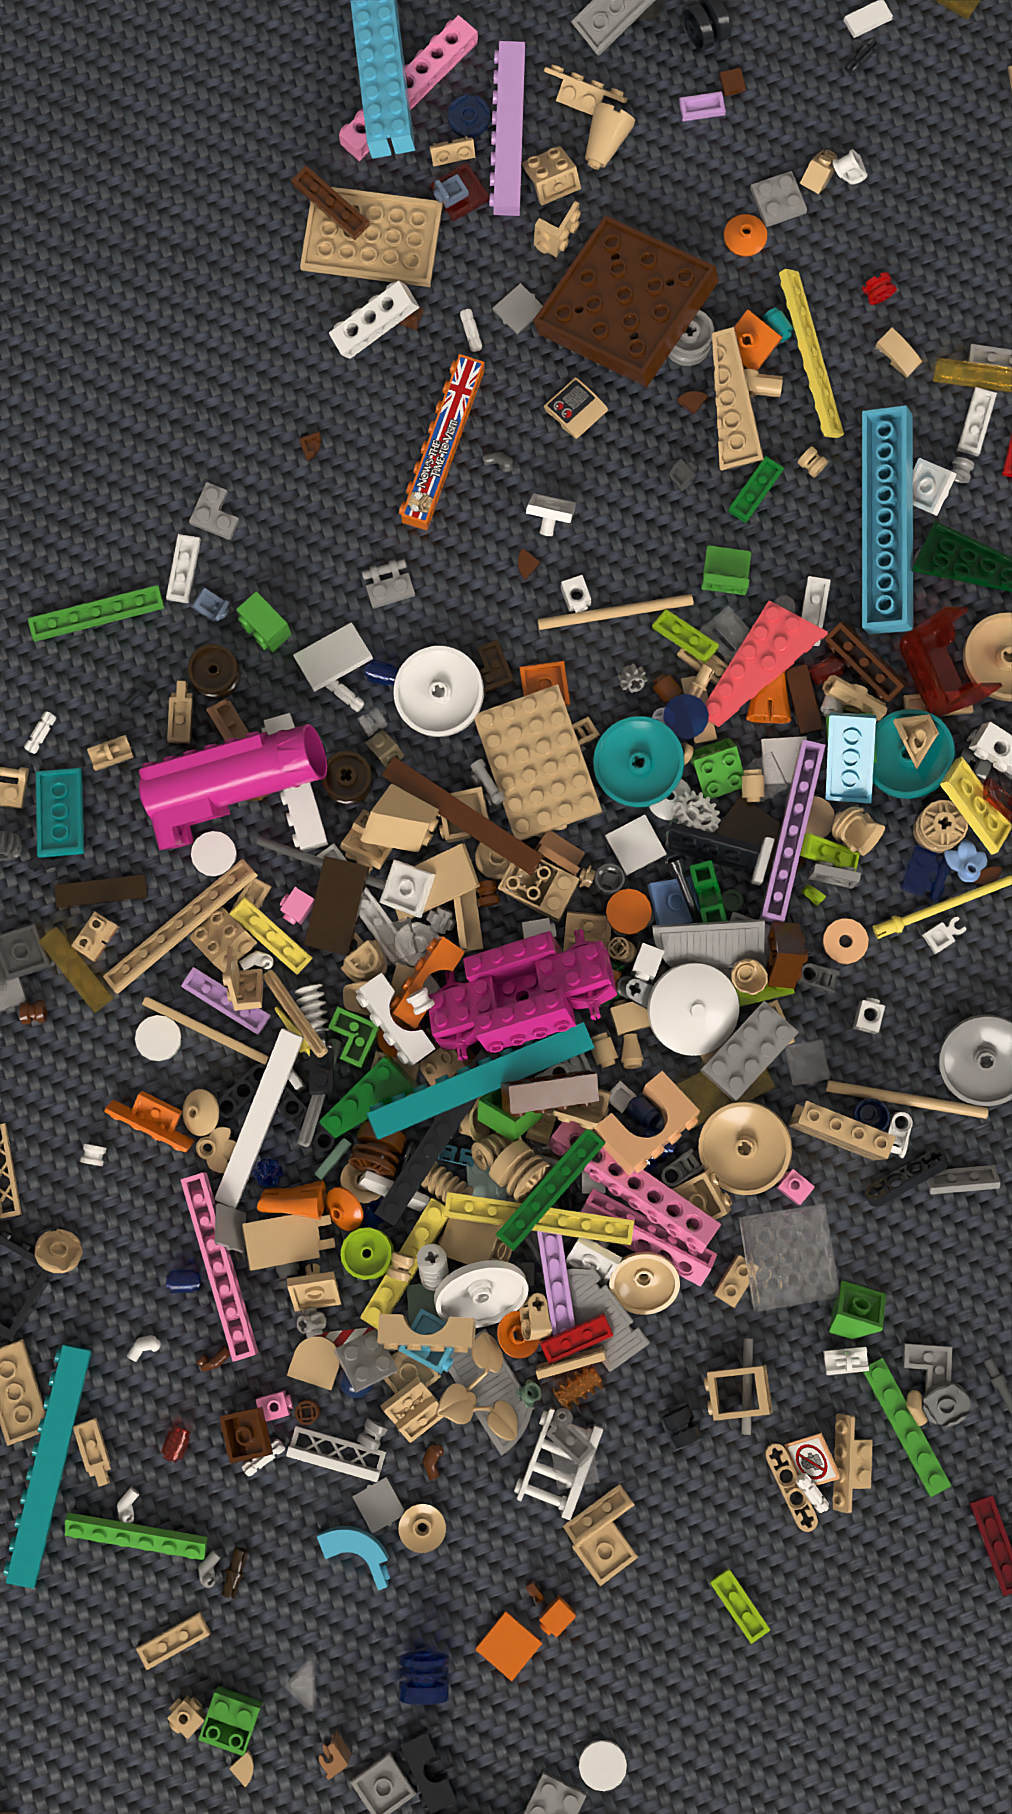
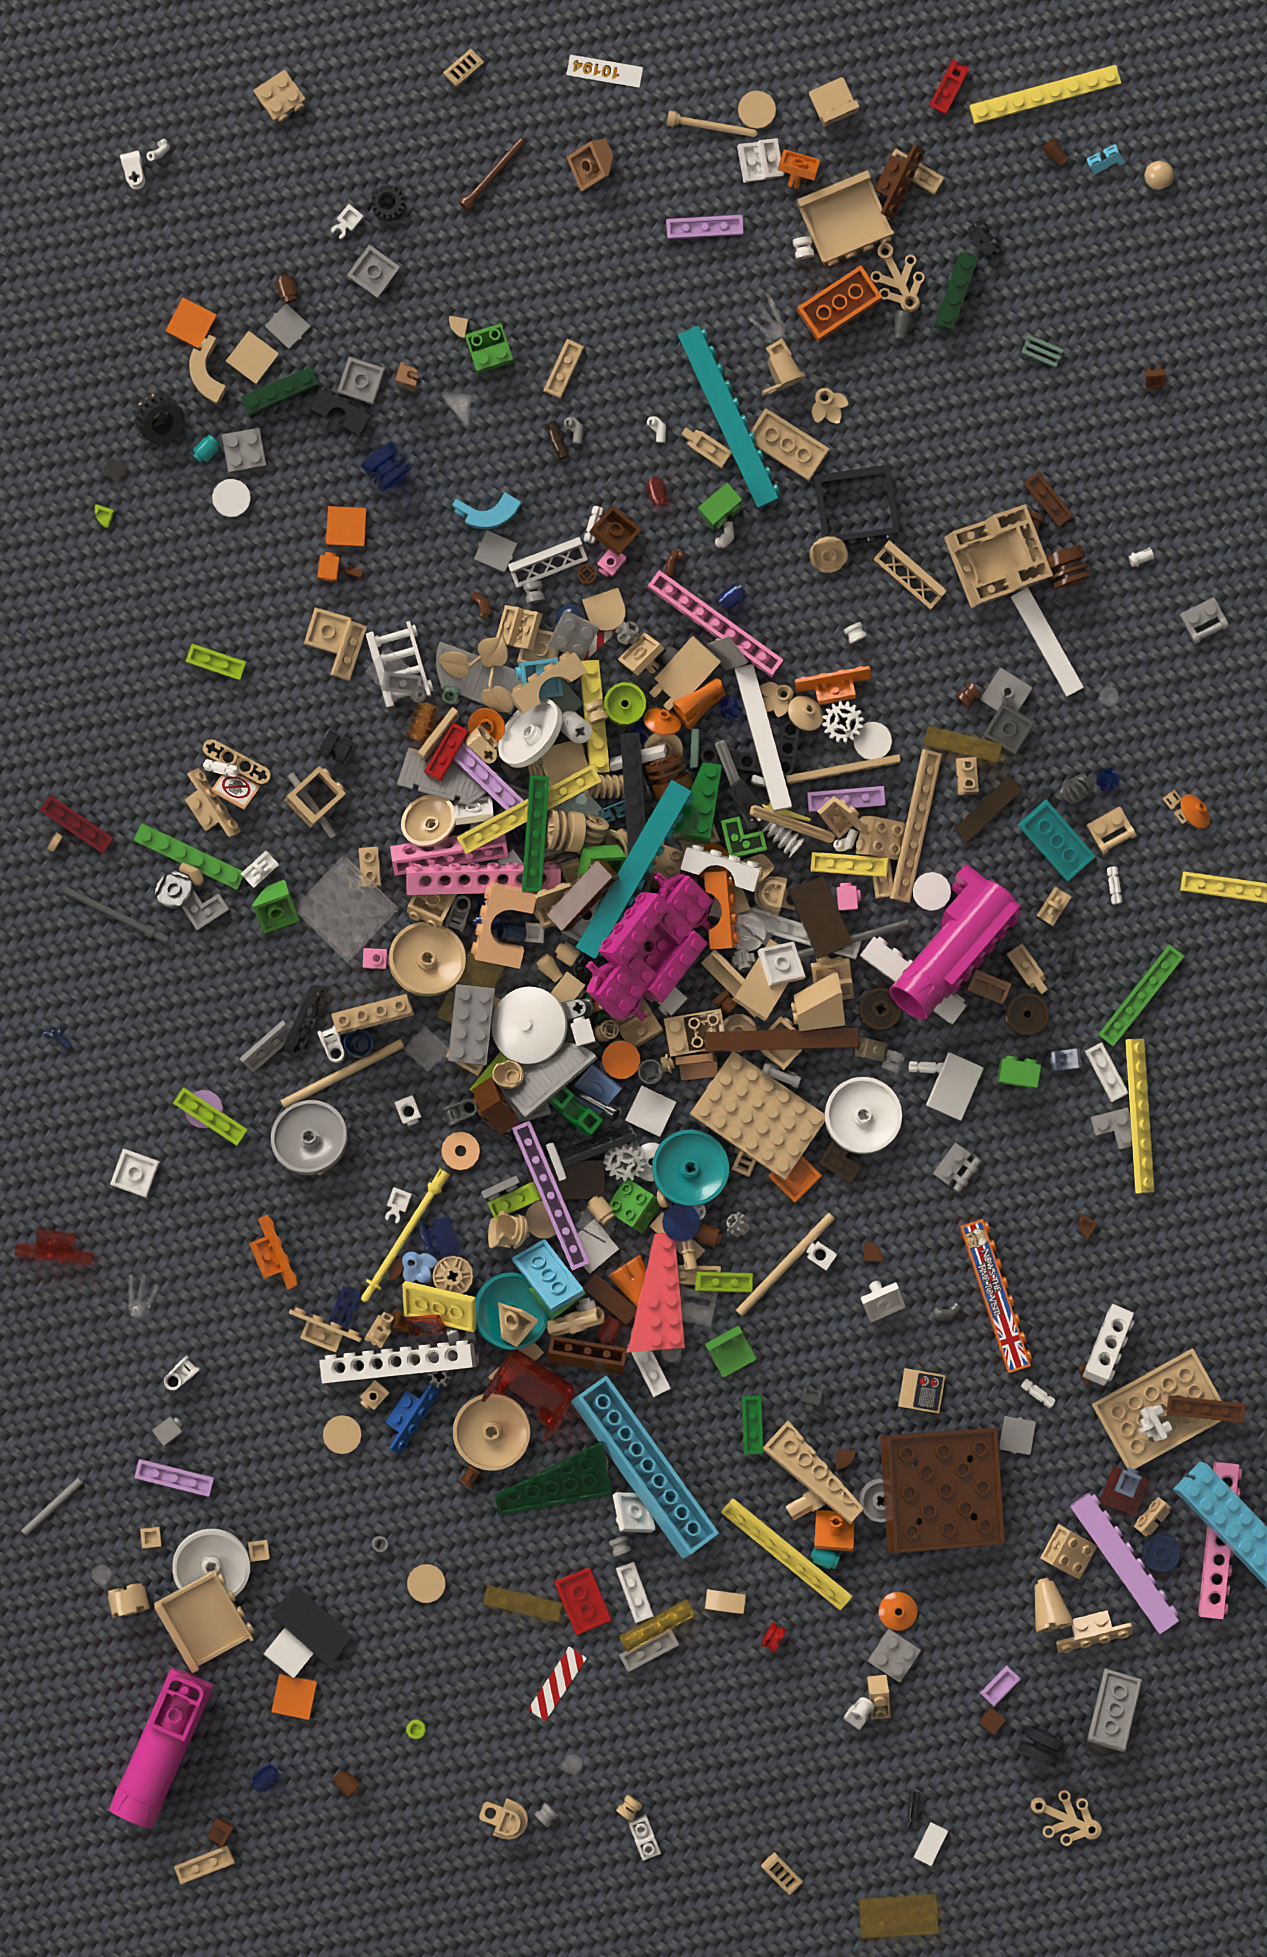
camera: 140 degrees right, 5 degrees up
(125, 1380) = (720, 506): none -> bright green brick
(135, 1536) = (637, 414): bright green plate -> none
(161, 1075) = (832, 727): none -> white gear
(183, 506) = (1139, 1115): none -> light yellow plate
(186, 1716) = (519, 323): tan brick -> none
(381, 673) = (912, 1099): clear blue brick -> none
(389, 223) = (1152, 1425): none -> white hips
(419, 1540) = (456, 547): tan dish -> none
(420, 1001) = (713, 892): white wheel -> none
(553, 239) = (1033, 1496): tan bracket -> none
(595, 1025) = (585, 971): none -> black wheel
(732, 900) = (557, 1121): dark green tile -> none
(813, 465) = (723, 1473): tan wheel -> none
(813, 894) = (506, 1166): lime tile -> none

